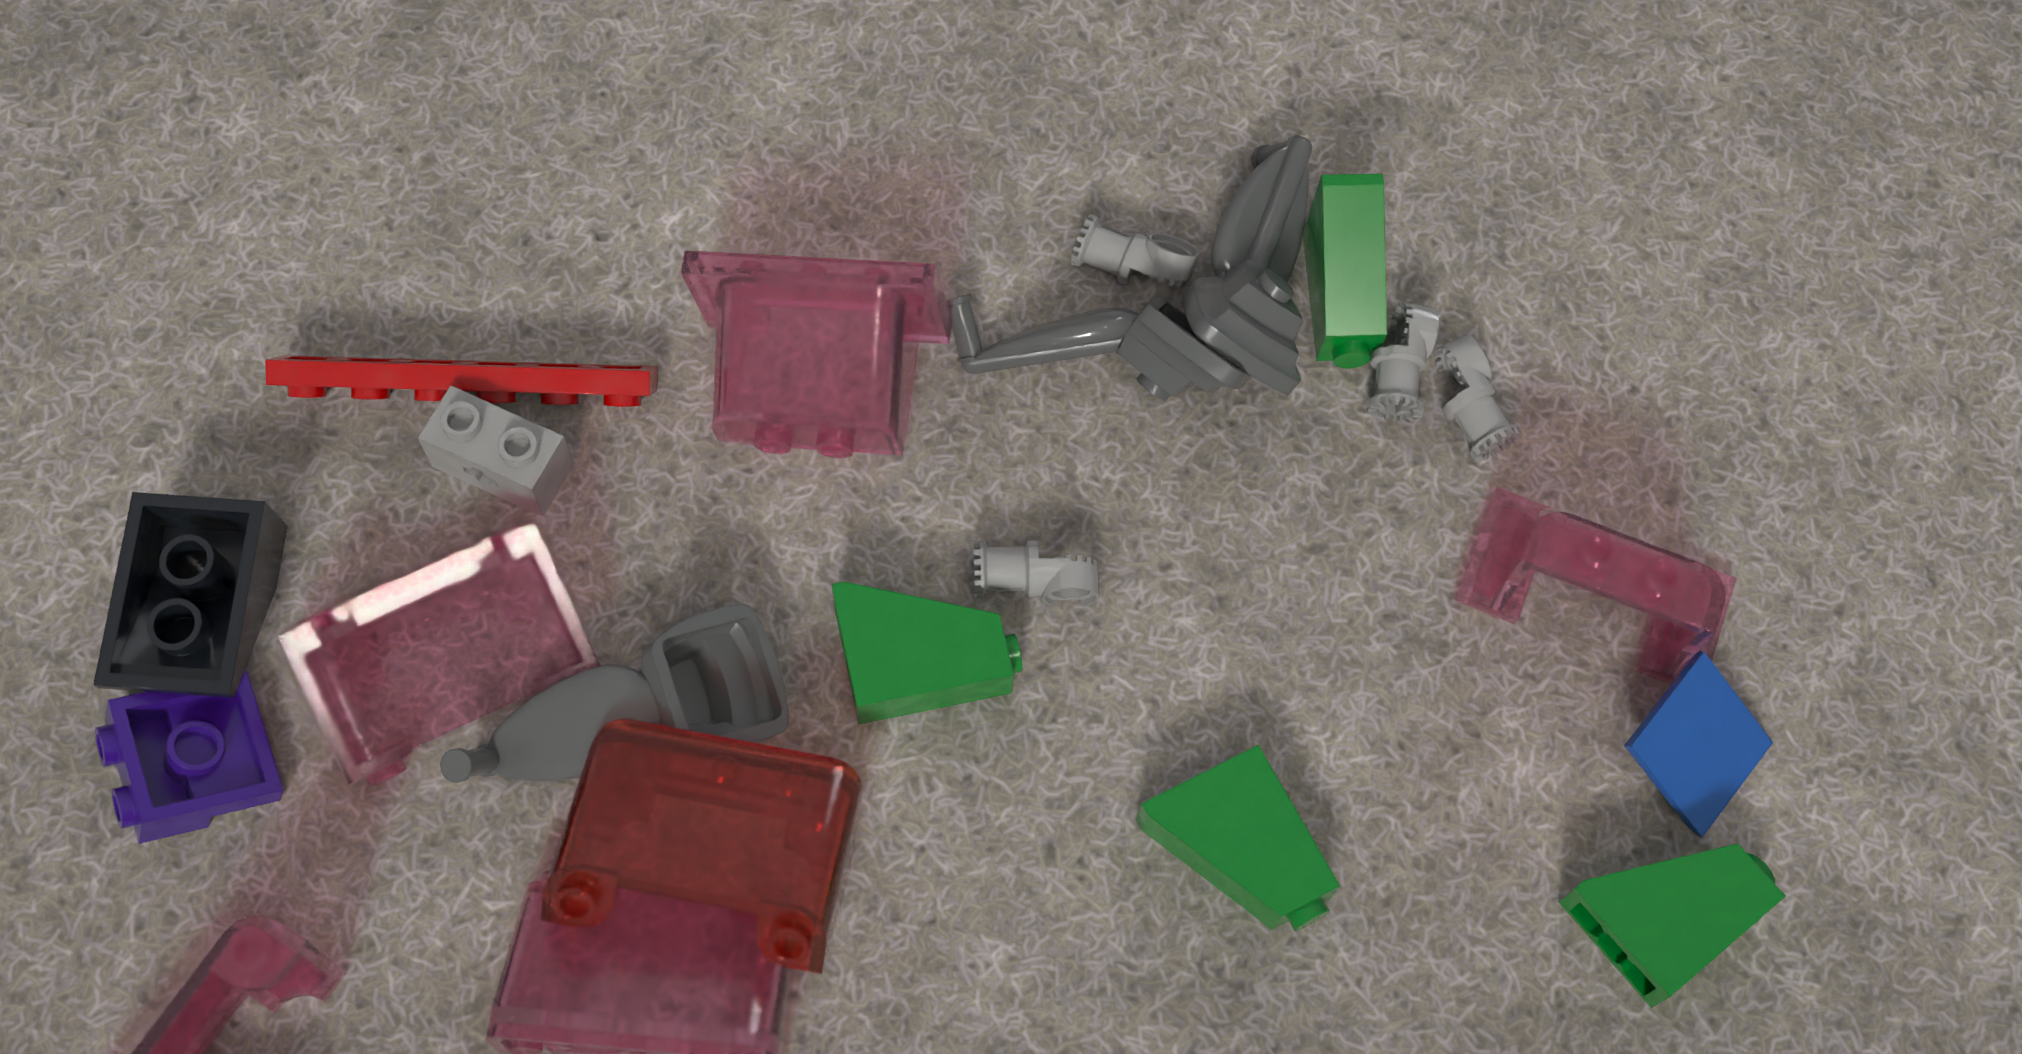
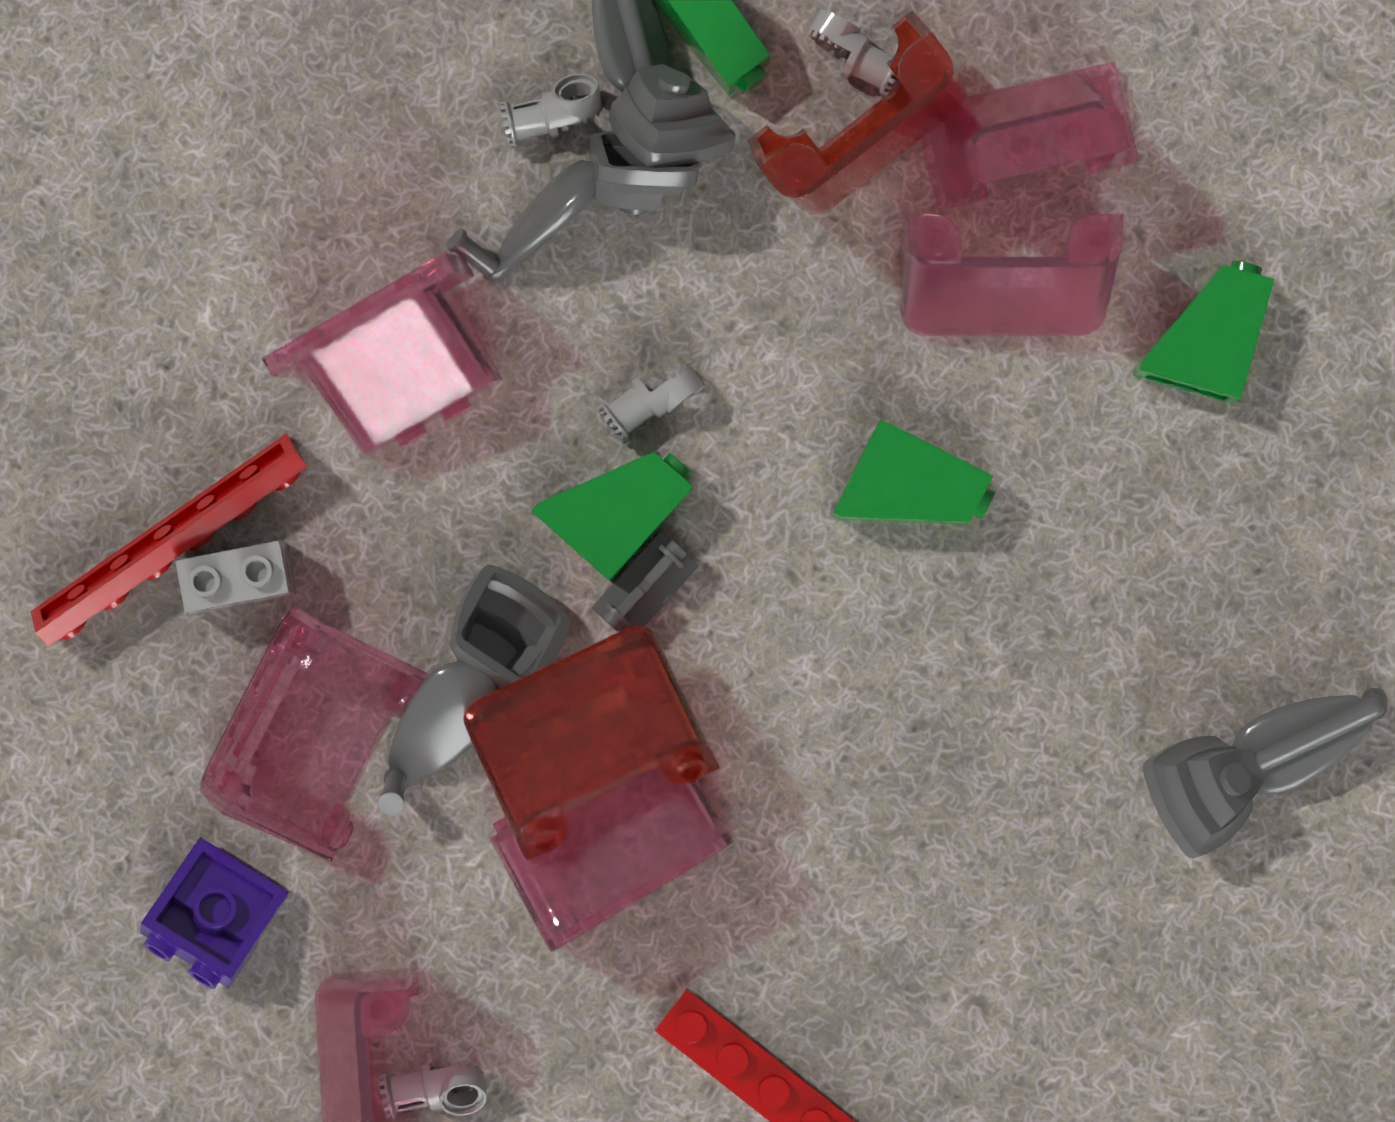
camera: 30 degrees left, 20 degrees up
(189, 594) = (128, 822): black slope -> none
(896, 748) = (645, 584): none -> dark grey hinge
(1402, 361) = (791, 67): light grey connector -> none
(1450, 472) = (826, 175): none -> clear red windscreen
(1485, 707) = (1005, 294): none -> clear pink windscreen
(1699, 744) = (1161, 205): blue piece -> none

